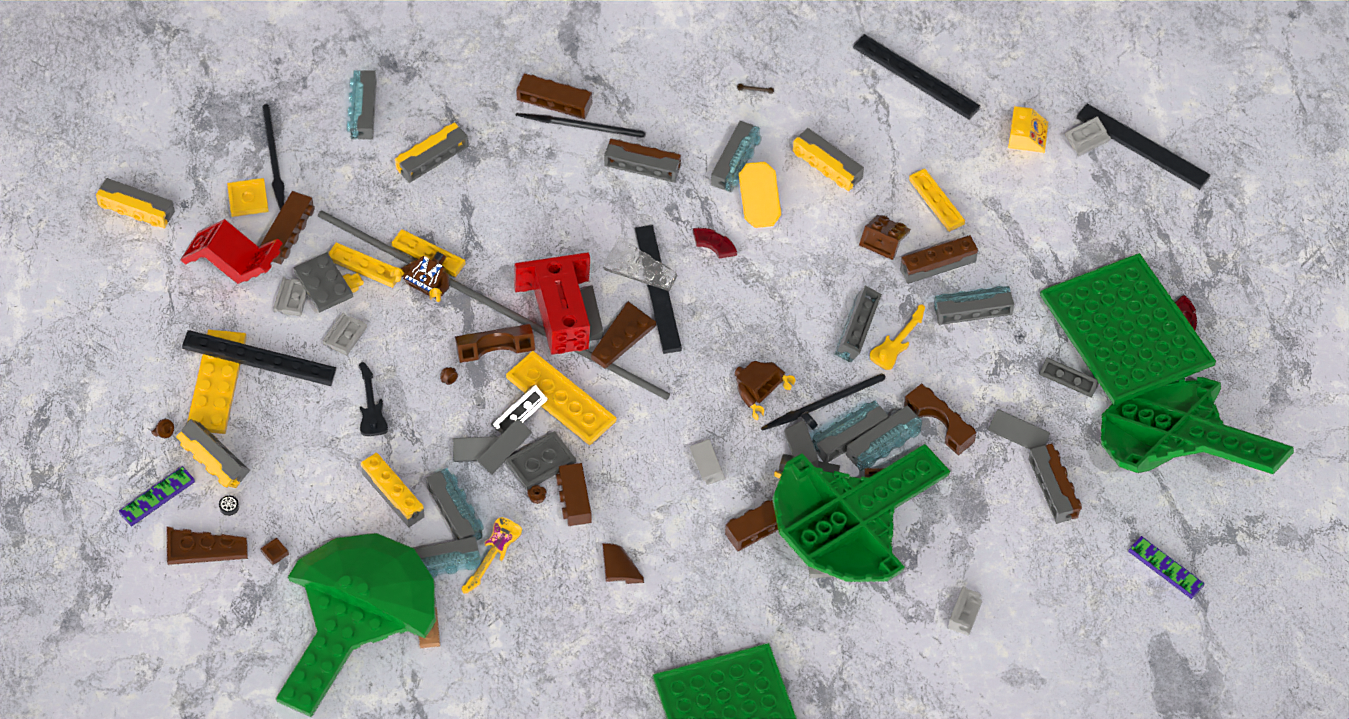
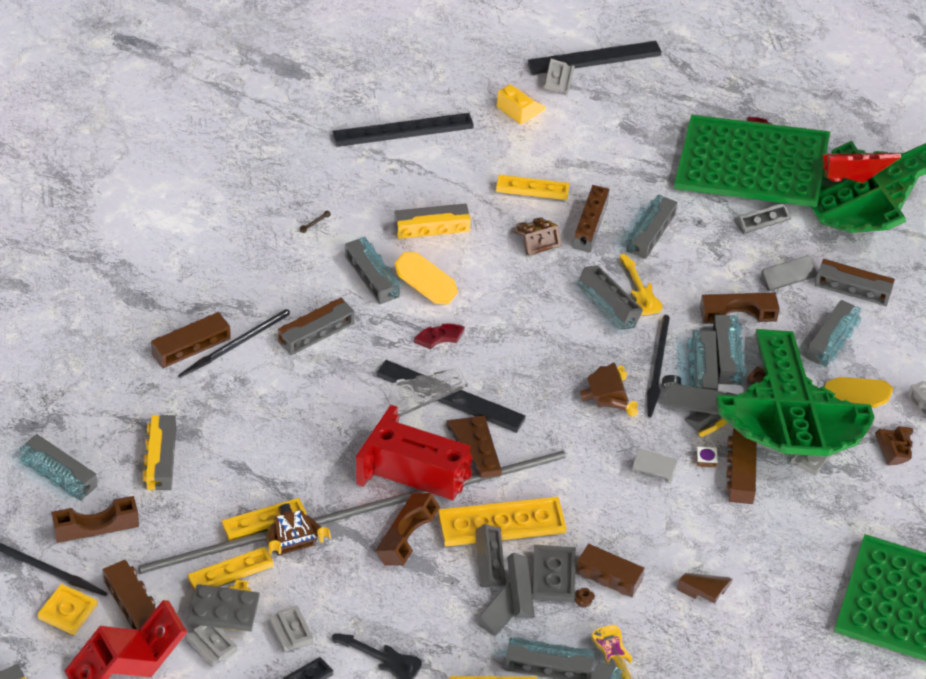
camera: 55 degrees left, 10 degrees down
(347, 167) = (72, 525): none -> reddish brown arch
(448, 375) = (406, 582): reddish brown plate -> none
(755, 491) = (706, 456): none -> tile
(895, 614) = (895, 444): none -> reddish brown slope
(922, 553) = (861, 390): none -> yellow shield
(977, 501) = (834, 333): none -> piece
(1171, 396) = (856, 166): none -> red wedge

